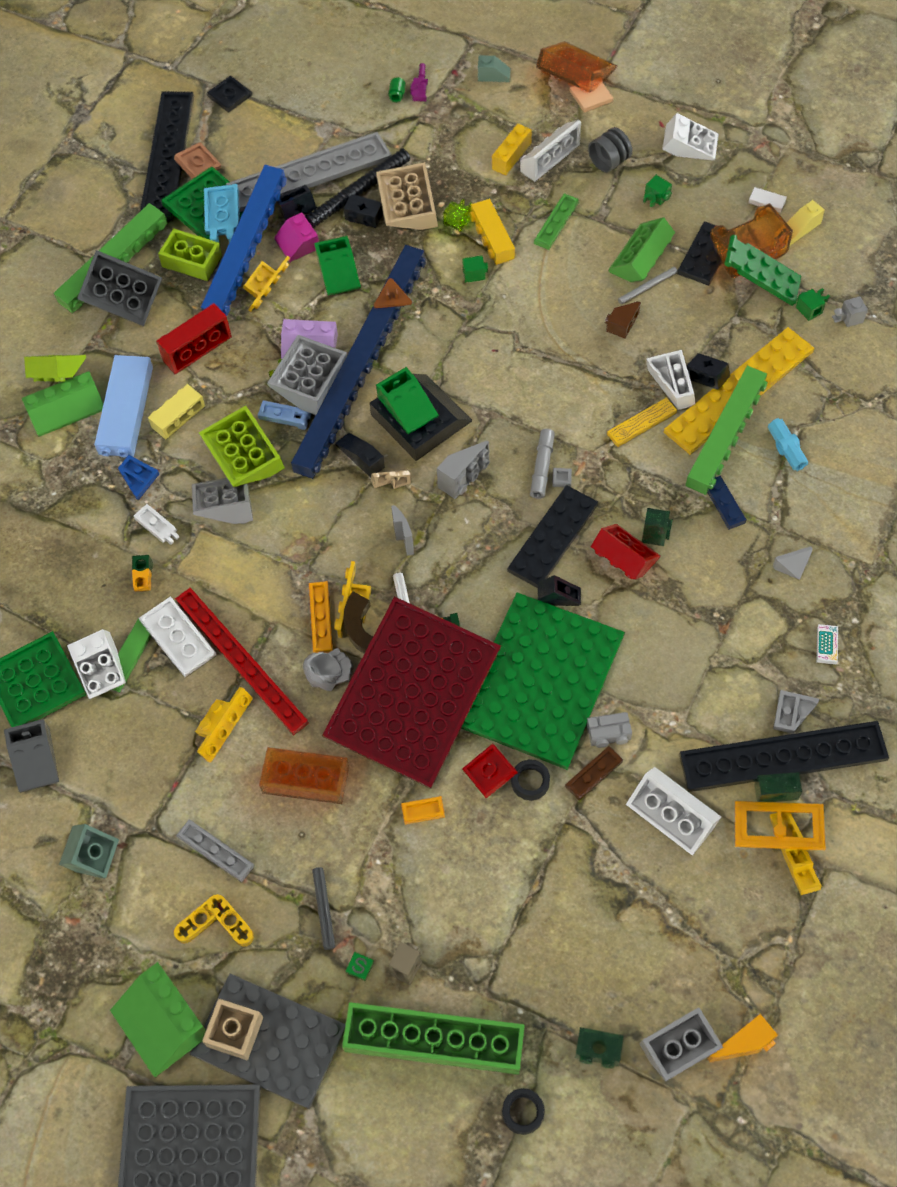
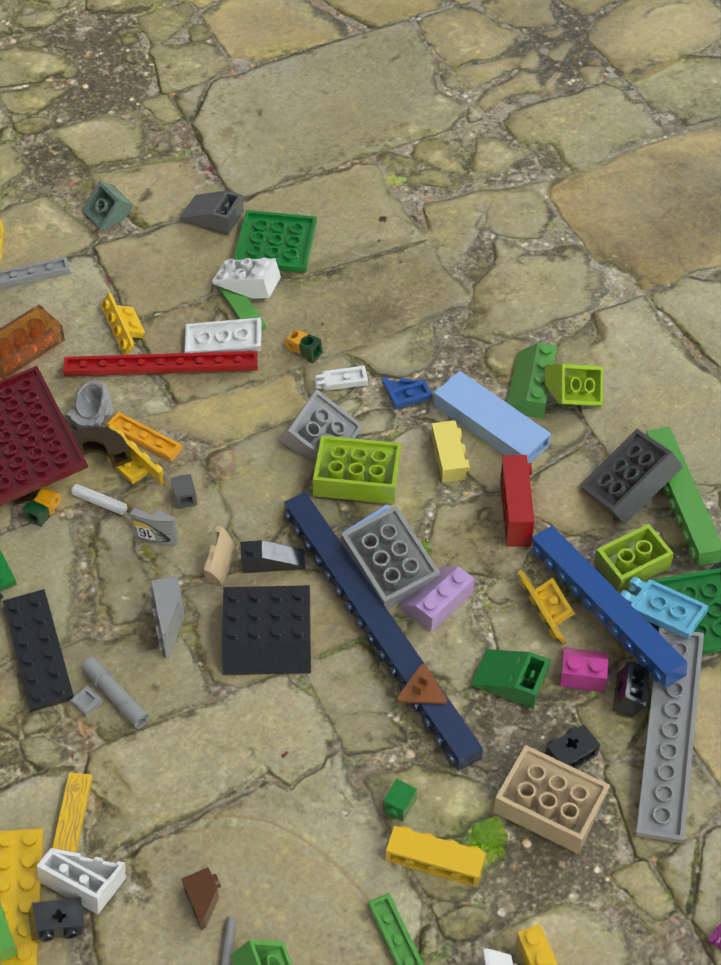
camera: 125 degrees right, 10 degrees down
(351, 546) = (184, 491): none -> dark grey brick
(357, 188) = (613, 771): black piece -> none
(406, 400) = (271, 599): green slope -> none

